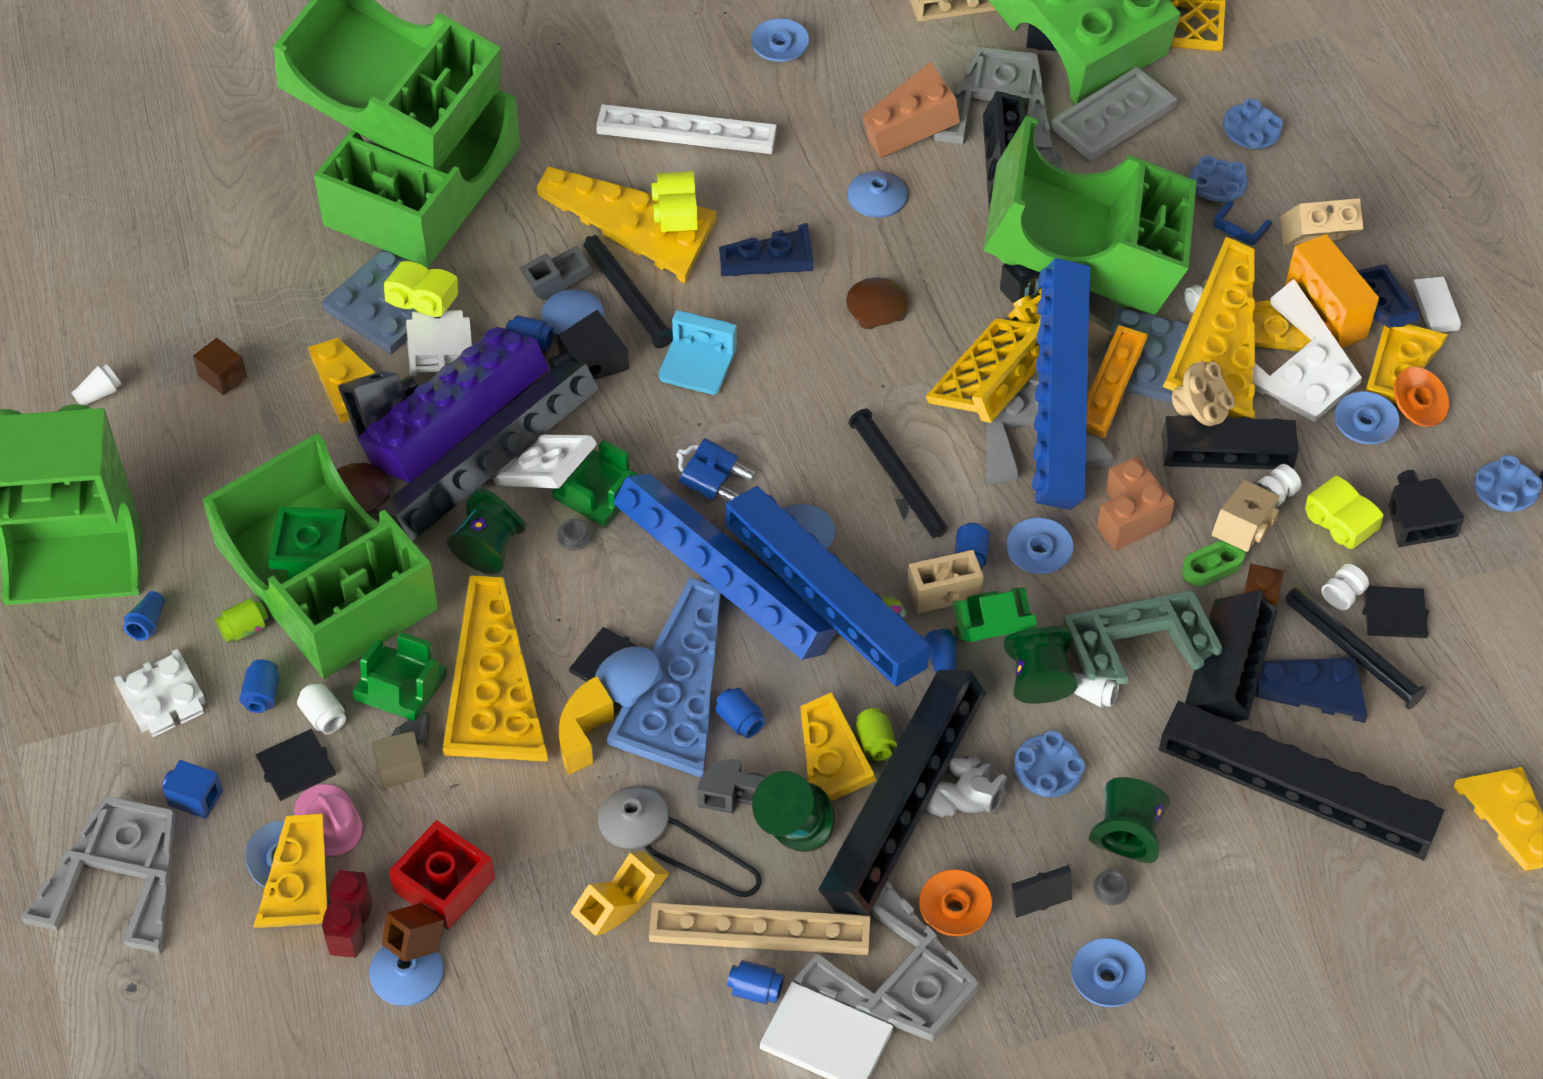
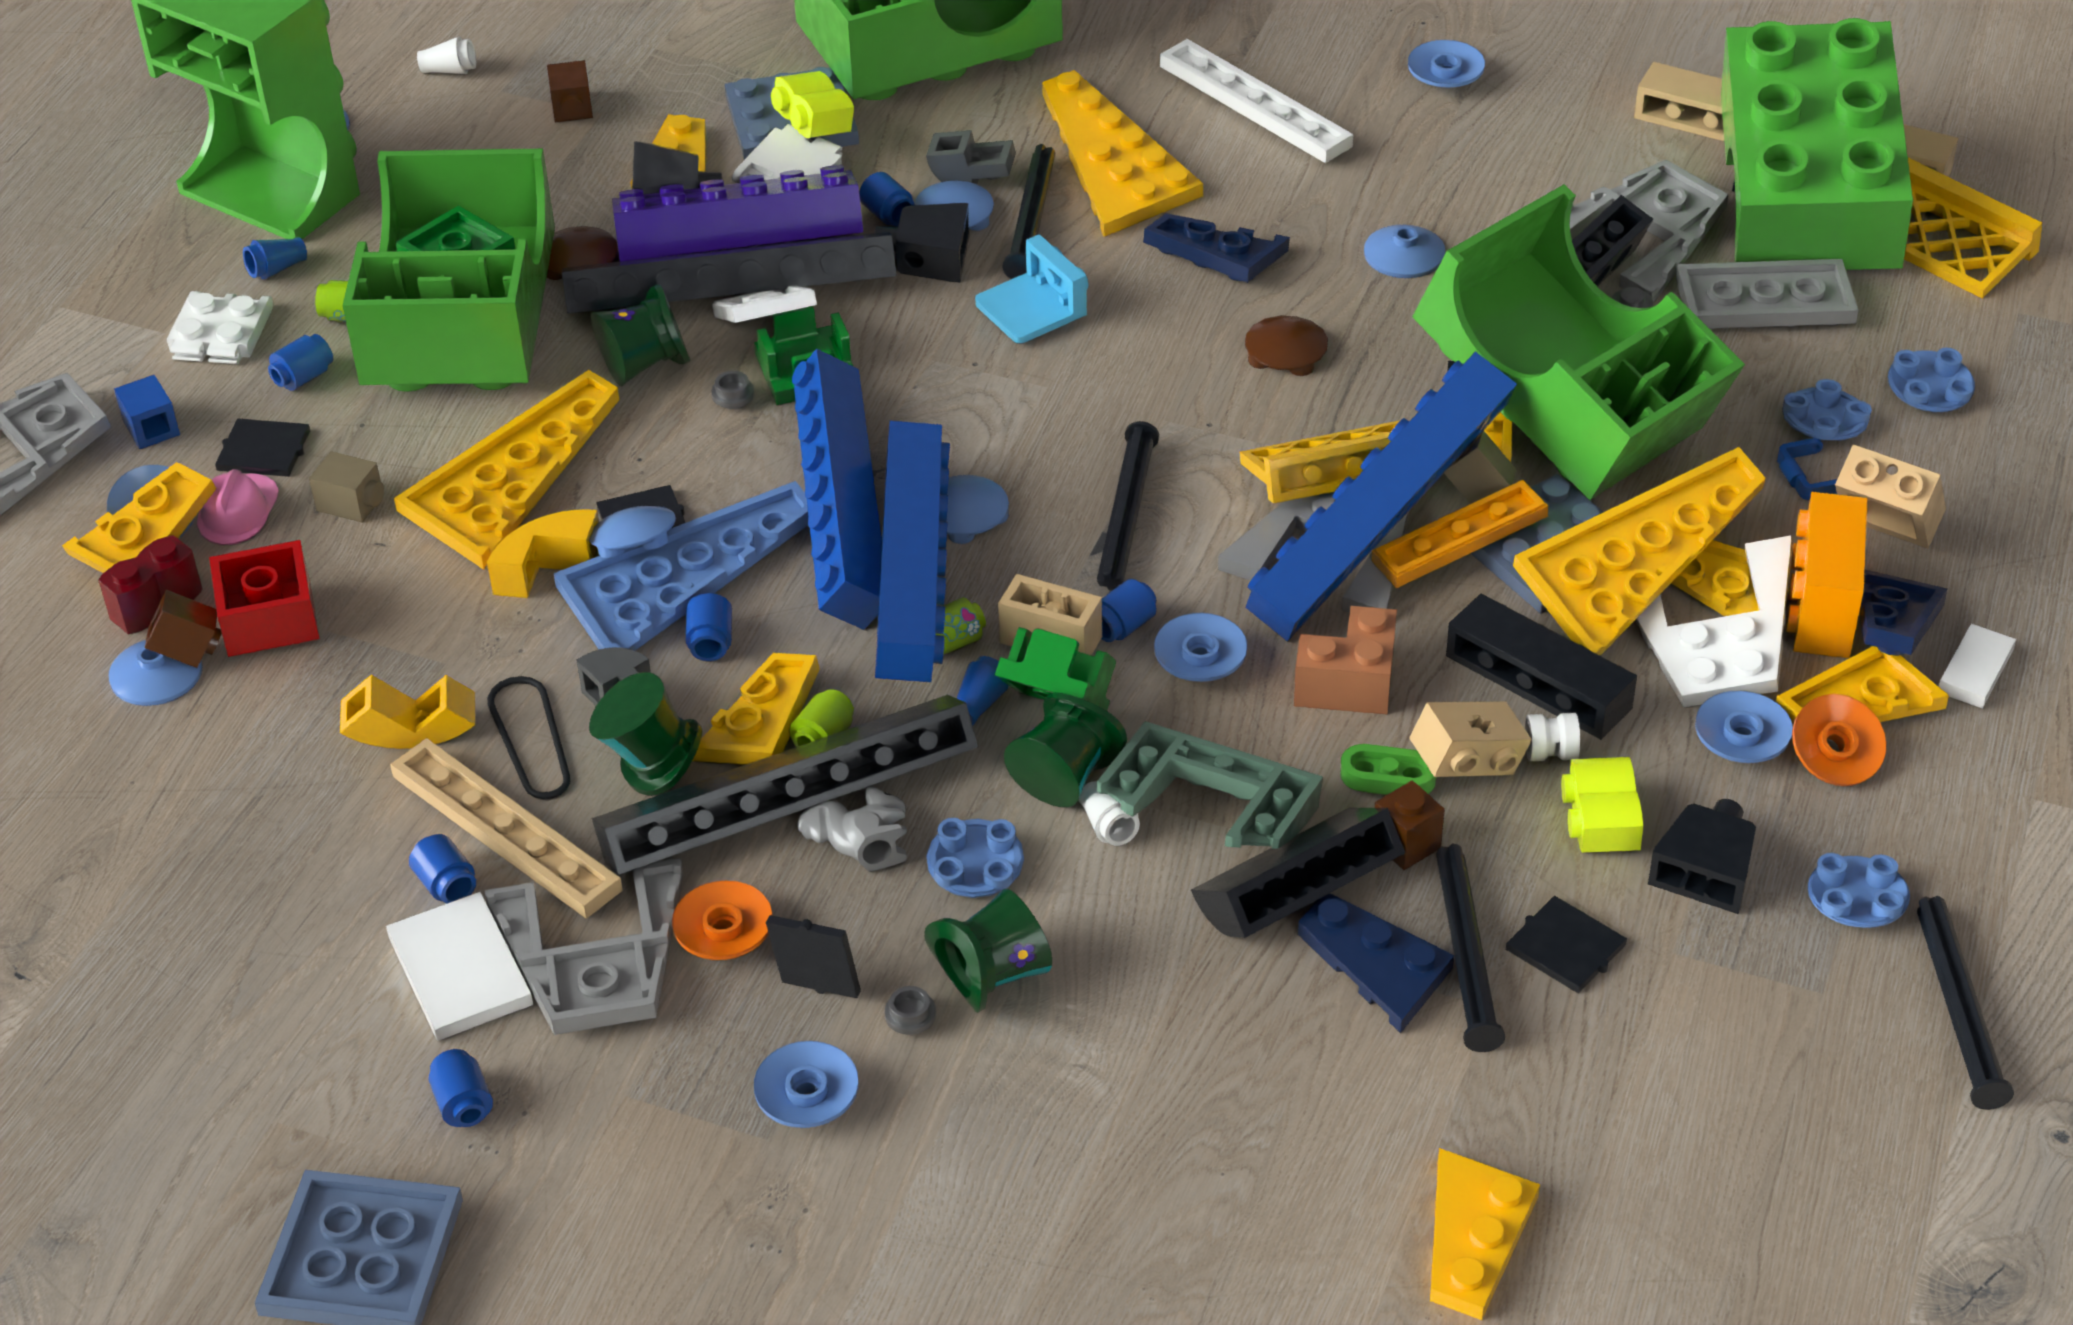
camera: 40 degrees right, 10 degrees down
(321, 708) = (330, 408): white brick -> none
(399, 678) = (424, 422): green panel -> none
(420, 728) = (399, 477): dark grey tile -> none
(636, 828) = (506, 663): light grey dish -> none
(676, 201) = (1156, 146): neon yellow brick -> none
(710, 470) = (931, 398): blue piece -> none
(911, 112) = (1505, 179): nougat wedge -> none
(1203, 394) = (1537, 582): tan plate -> none
(1301, 779) = (1248, 1040): black brick -> none
(1347, 584) = (1524, 877): white wheel -> none

